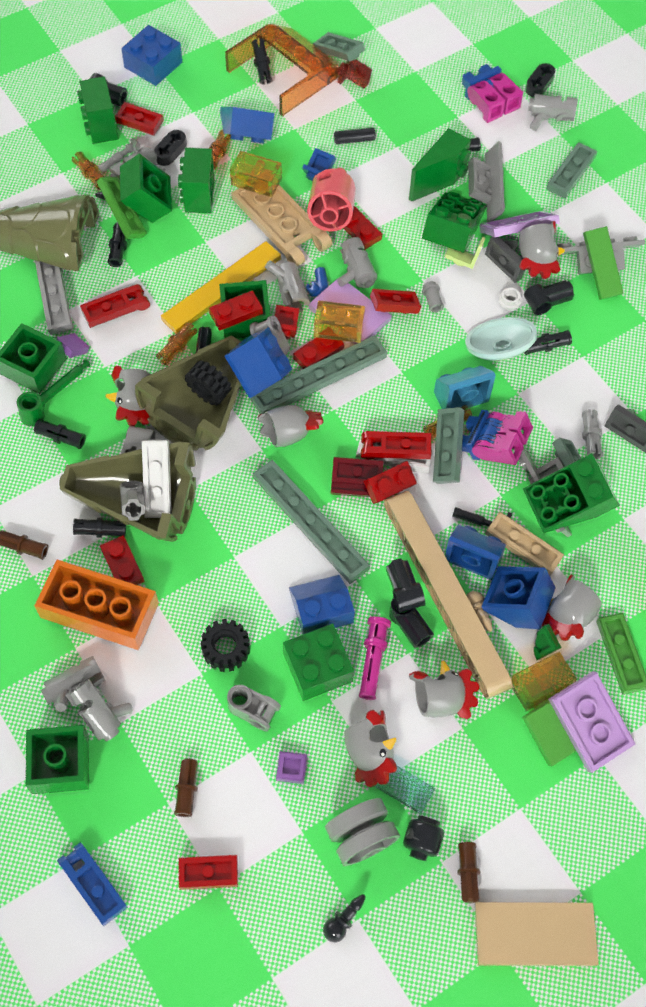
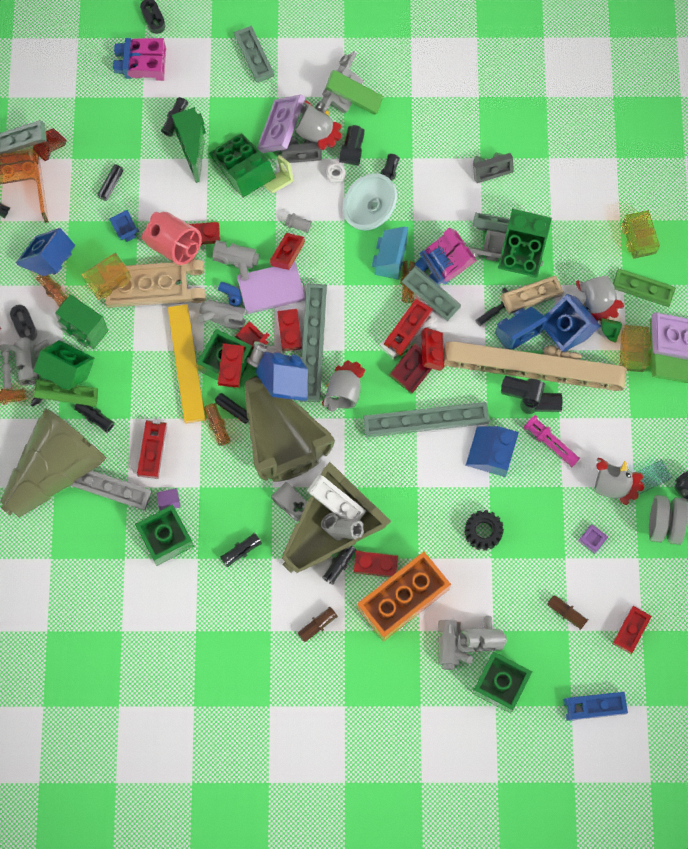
camera: 55 degrees left, 10 degrees up
(31, 405) = (204, 549): green piece -> none
(125, 397) = (246, 480): piece -> none
(208, 383) = (277, 421): black tyre -> none
(253, 708) = (542, 536): light grey piece -> none
(318, 662) = (535, 478): green brick -> none
(339, 321) = (283, 300): clear yellow brick -> none
(446, 694) = (606, 413): light grey piece -> none
(487, 181) = (224, 117): light grey bracket -> none
(549, 107) = (186, 28): light grey piece -> none
(592, 433) = (479, 195): light grey pin -> none

